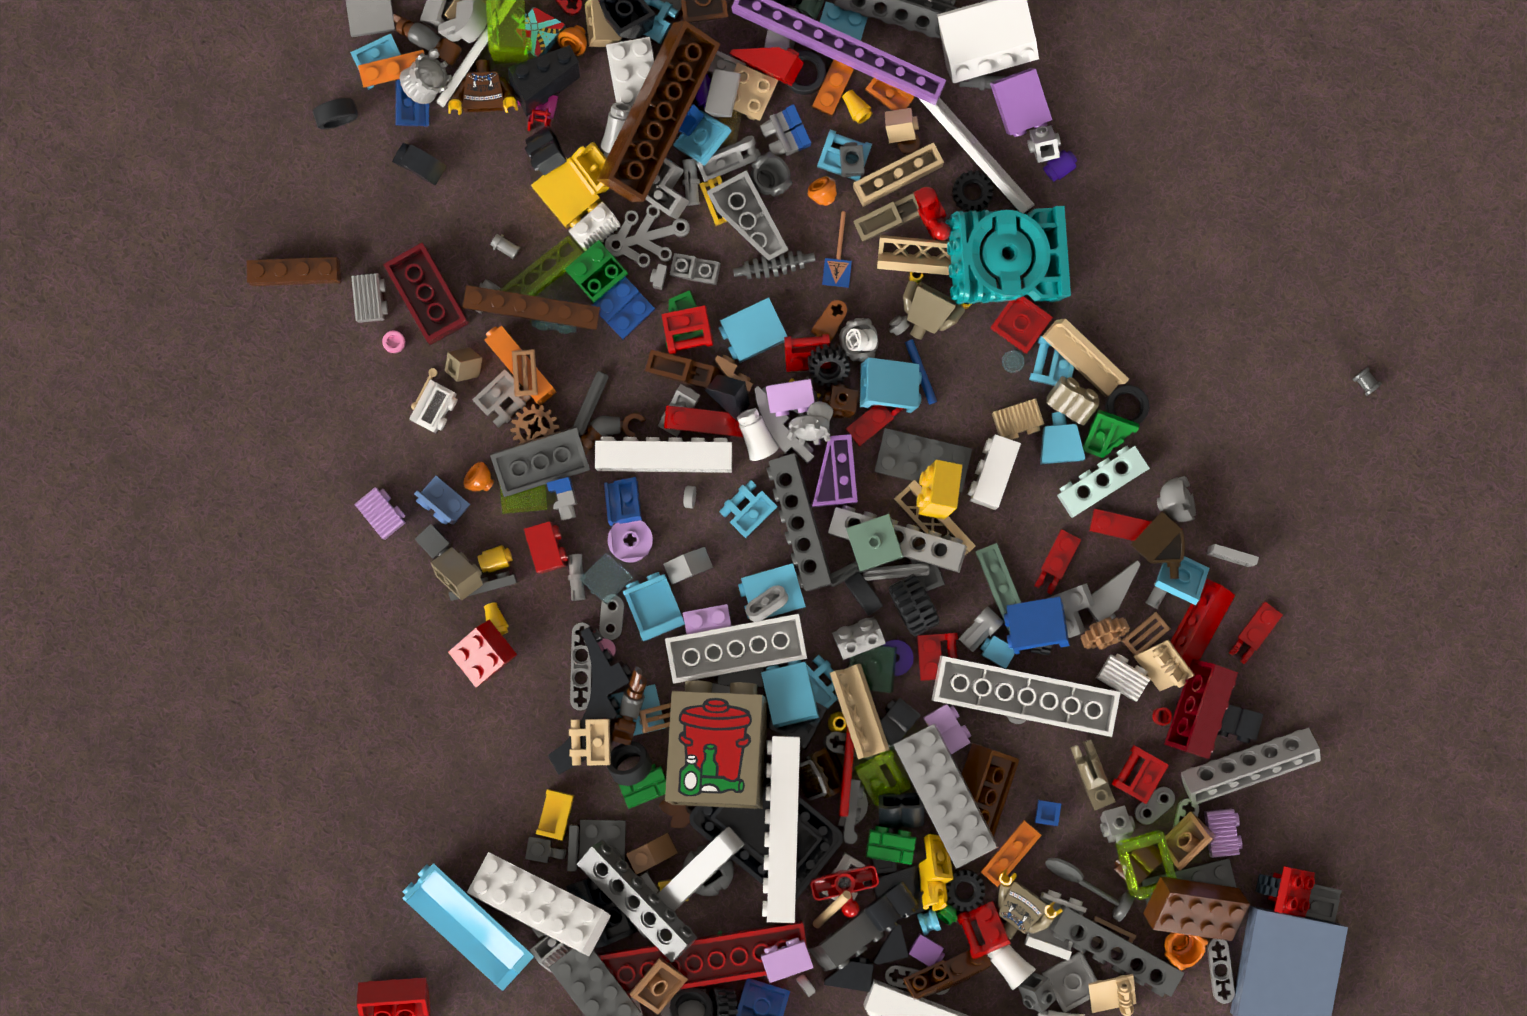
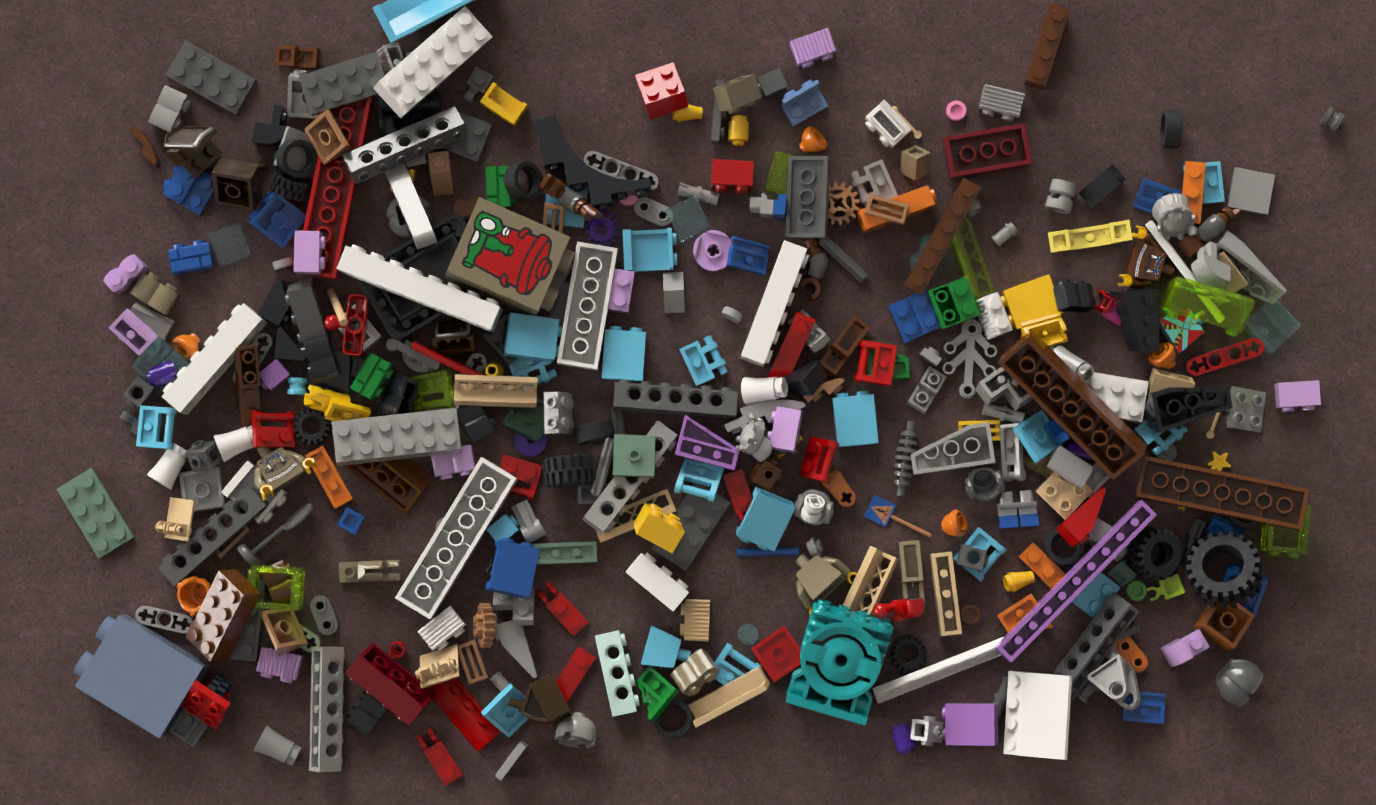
camera: 110 degrees right, 0 degrees up
(445, 201) = (1061, 196): none -> light grey wheel
(476, 157) = (1090, 236): none -> light yellow slope
(573, 849) = (470, 110): dark grey tile -> none
(597, 741) = (550, 159): tan plate -> none
(650, 654) = (605, 221): none -> dark purple gear
(766, 603) = (615, 345): light grey plate -> none
(824, 355) = (792, 472): black tyre -> none
(867, 468) = (702, 474): none -> medium azure plate
(901, 125) = (987, 612): tan brick -> none
(947, 914) = (297, 404): green plate -> none
(1117, 824) = (324, 580): light grey brick -> none
(1147, 777) = (349, 616): red plate -> none
(1308, 803) = (277, 746): none -> light grey plant

